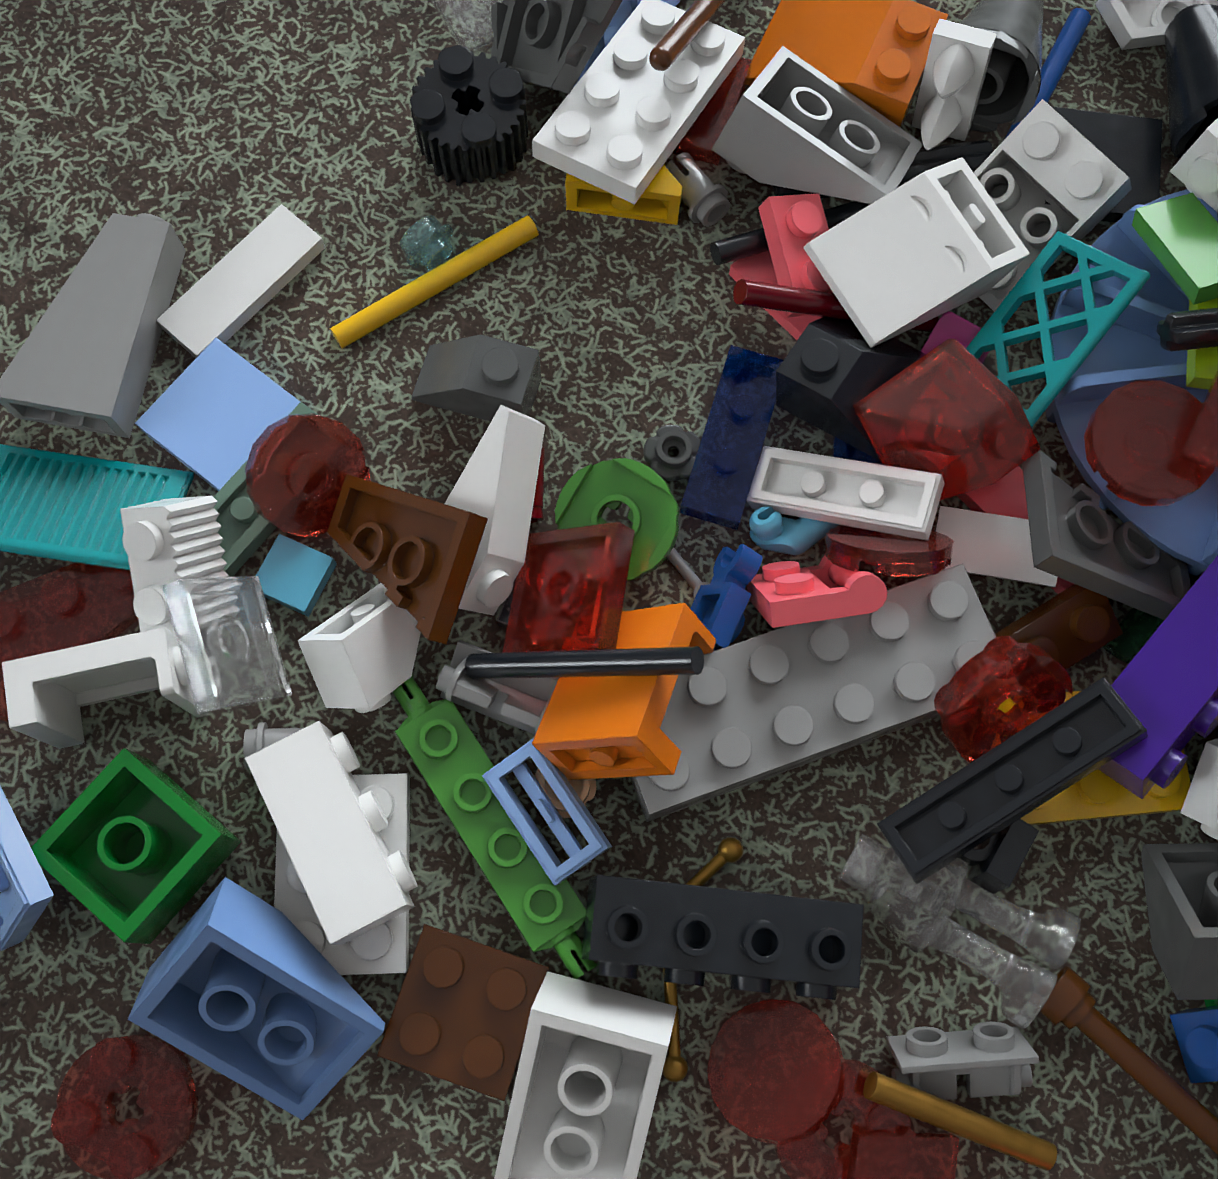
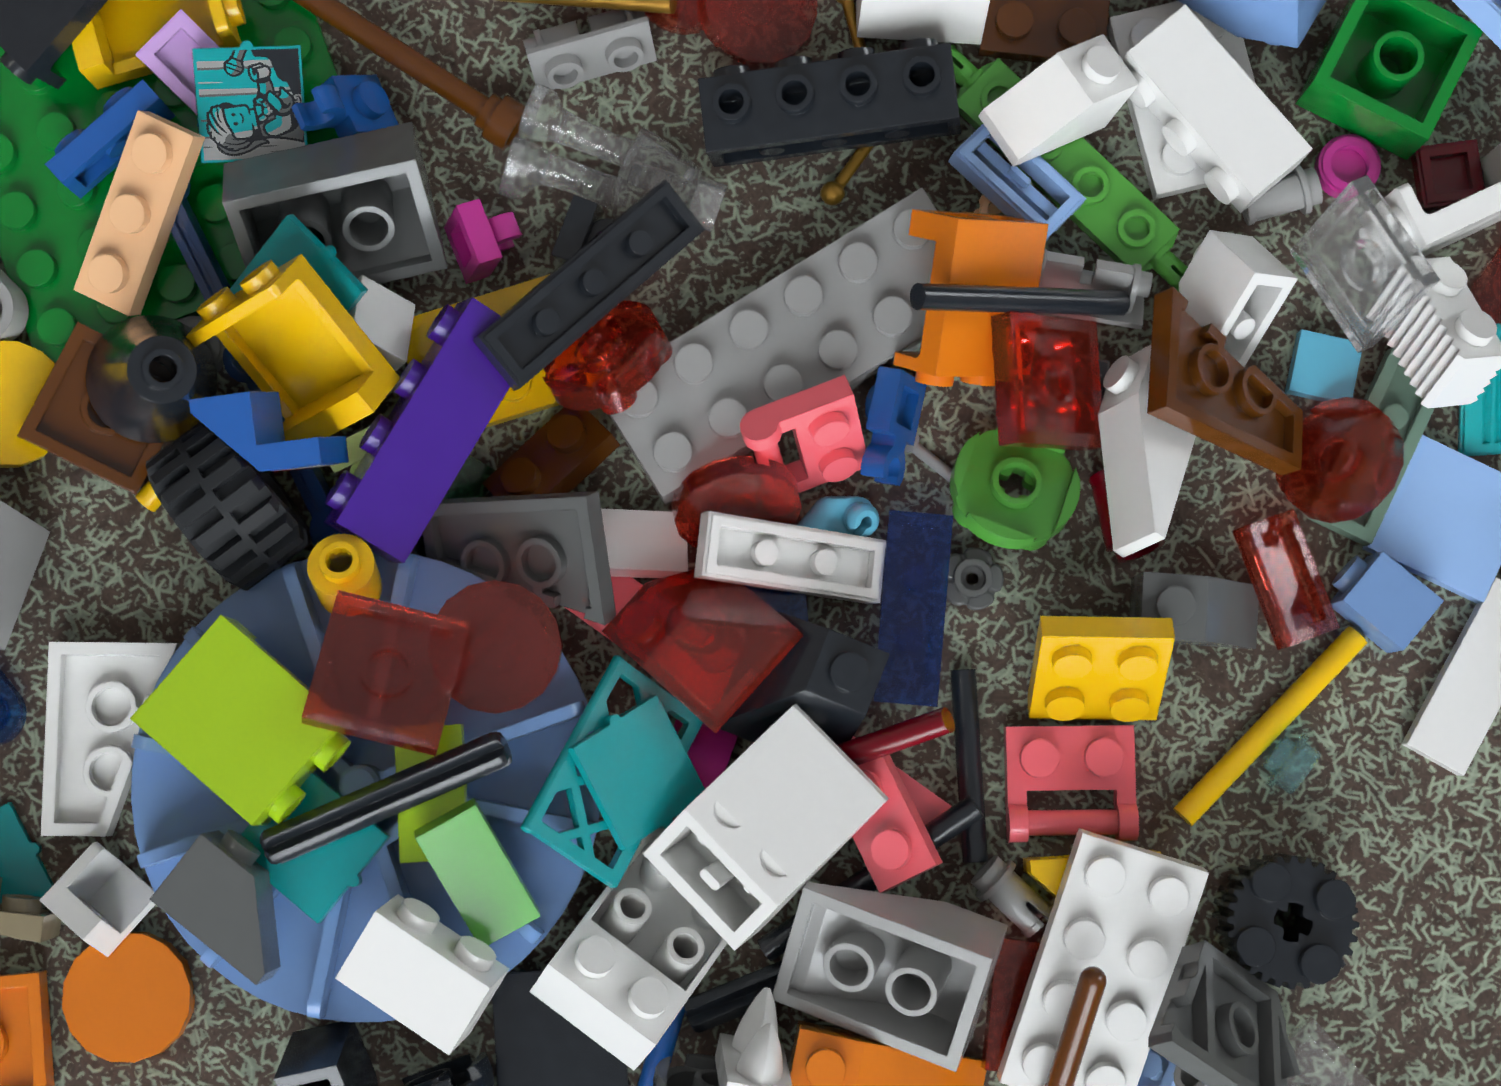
camera: 170 degrees right, 10 degrees up
(109, 728) = (1446, 173): none -> dark red tile
(209, 765) = (1346, 160): none -> dark pink tile
(305, 351) = (1383, 600): none -> medium blue brick
(386, 394) = (1285, 579): none -> clear red tile
(487, 874) = (1060, 101): none -> white slope
(565, 335) = (1099, 667): none -> yellow plate
(617, 286) = (1070, 760): none -> coral plate
(707, 309) = (969, 760): none -> black bar
(1024, 322) = (637, 771): none -> teal piece
(1104, 871) = (479, 240): none -> dark pink tile

